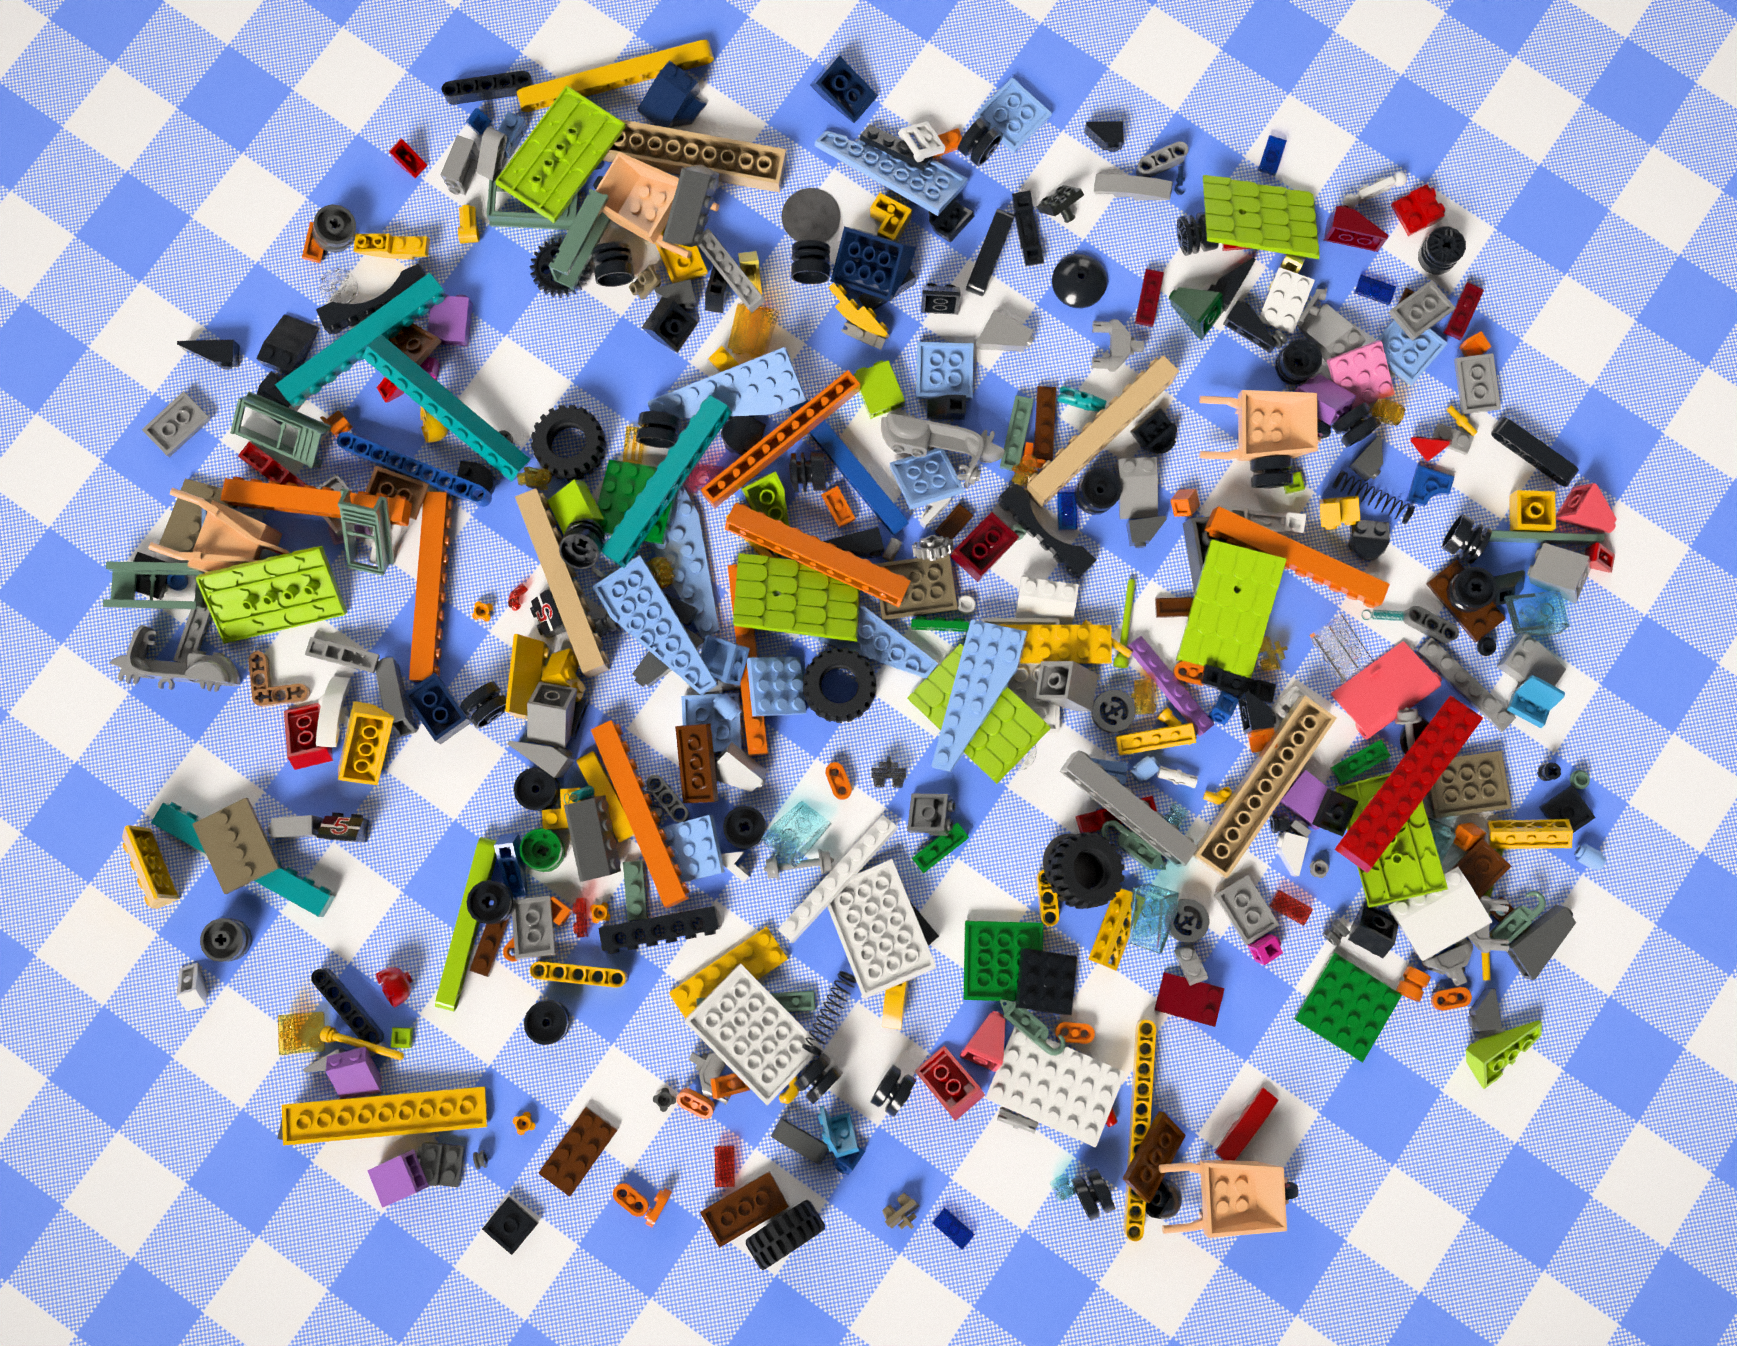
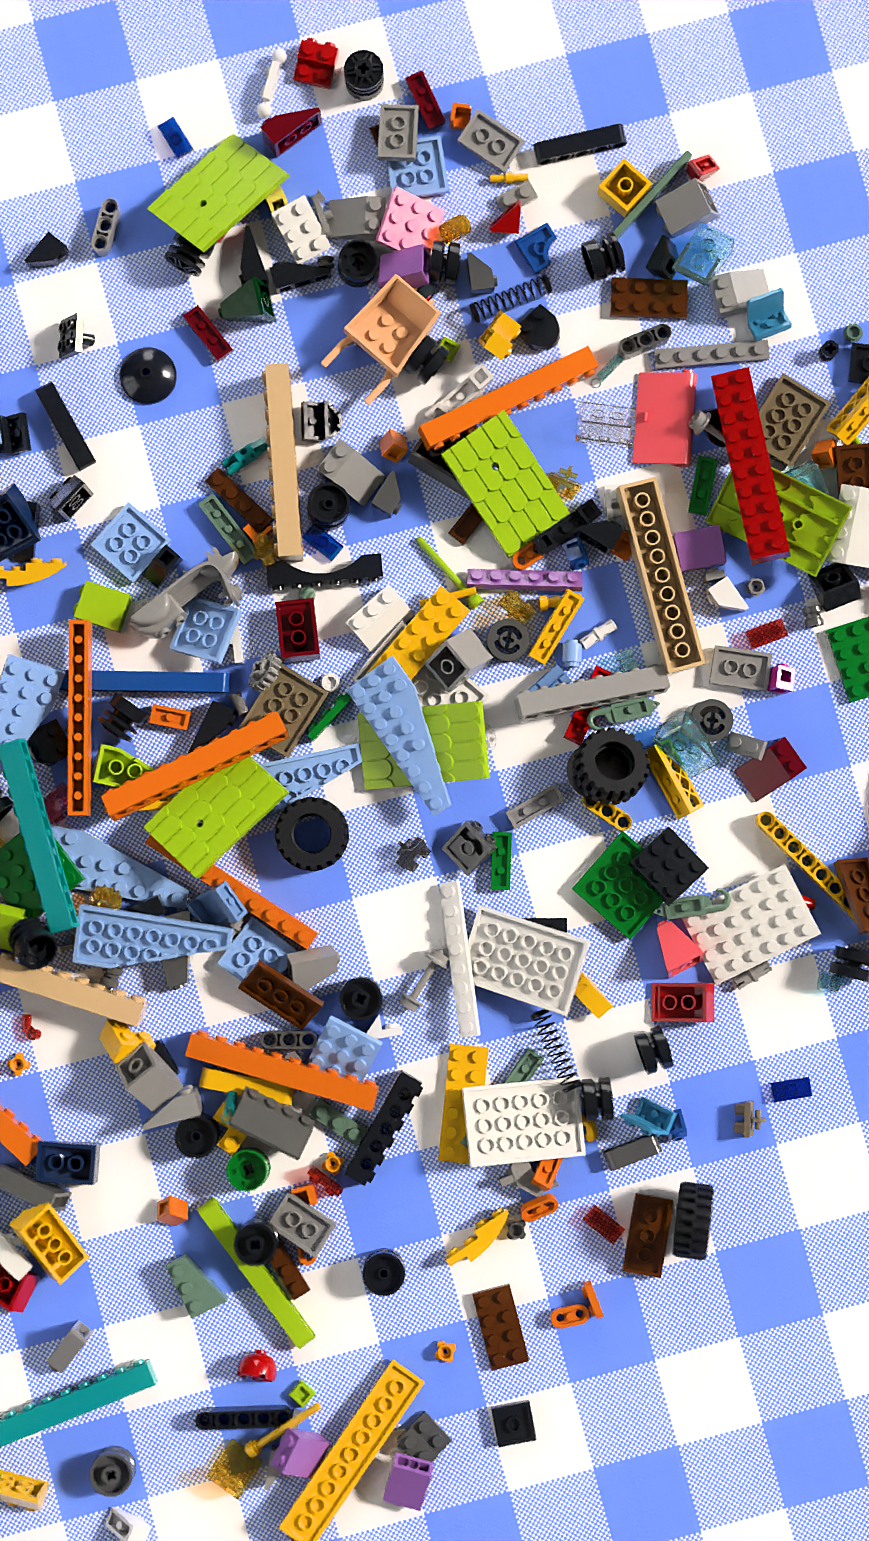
camera: 55 degrees left, 5 degrees up
(236, 845) = (45, 1405): dark tan plate -> none
(344, 828) = (102, 1310): black slope -> none
(418, 884) = (194, 1286): none -> sand green wedge
(463, 819) = (172, 1211): none -> orange panel
(480, 1159) = (445, 1406): dark grey bush -> none
(484, 705) = (96, 1122): black wheel -> none
(511, 863) = (238, 1201): blue slope -> none
(525, 673) = (98, 1070): yellow slope -> none
(547, 614) = (65, 1015): black slope -> none
(569, 976) = (362, 1226): yellow beam -> none
(641, 1078) = (486, 1233): none -> yellow slope
(727, 706) = (255, 935): light blue brick -> none
(776, 686) = (271, 883): light blue plate -> none
(795, 833) = (398, 962): clear light blue slope -> none
(838, 781) = (384, 896): orange plate -> none
(863, 336) = (49, 582): light grey piece -> none
(954, 522) = (258, 637): reddish brown tile -> none
(1004, 334) = (142, 471): light grey slope -> none
(1004, 839) = (535, 806): none -> light grey plate
(1026, 228) = (71, 381): black slope -> none
(1074, 1032) = (723, 876): orange plate -> none
(1120, 345) = (227, 387): light grey connector -> none
(1133, 186) = (108, 268): light grey slope -> none
(1180, 180) = (133, 226): dark blue hand -> none
(1219, 797) = (639, 617): yellow arm -> none
(1279, 823) = (697, 587): black wheel -> none
(1335, 812) = (725, 539): black plate -> none
(1375, 289) = (350, 153): clear blue plate -> none
(1471, 589) = (650, 278): black wheel -> none
(1486, 646) = (696, 313): black plate -> none
(1587, 509) = (657, 144): coral slope -> none

